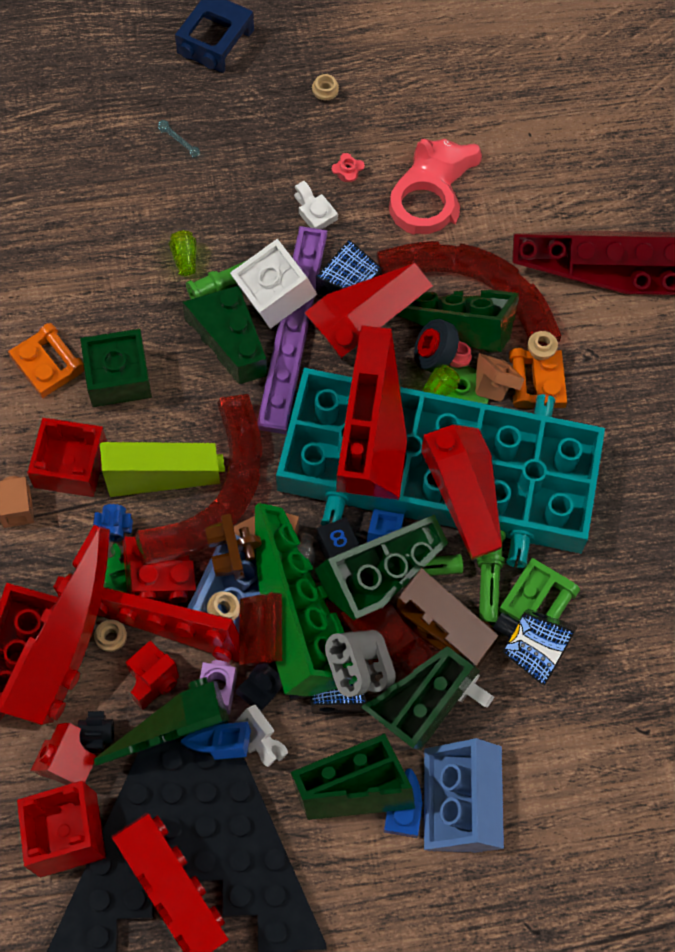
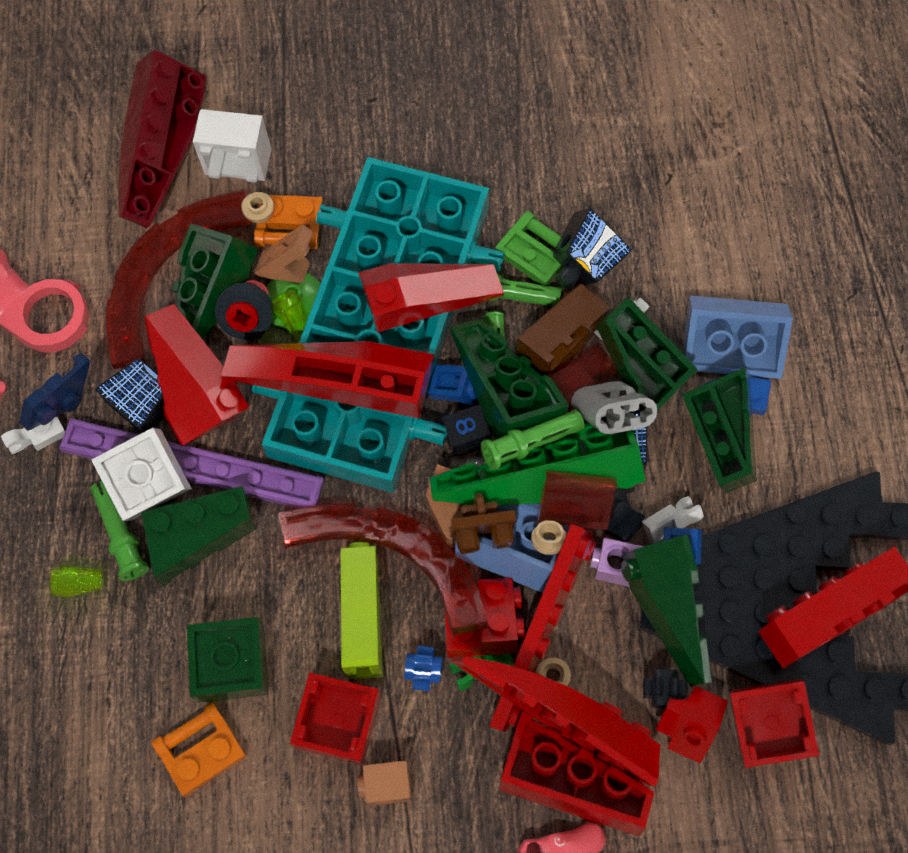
camera: 80 degrees left, 5 degrees up
(153, 673) = (602, 628): red brick -> none
(315, 576) = (519, 443): none -> bright green pin
(338, 210) = (55, 396): none -> dark blue wing
(602, 316) = (232, 145): none -> white container

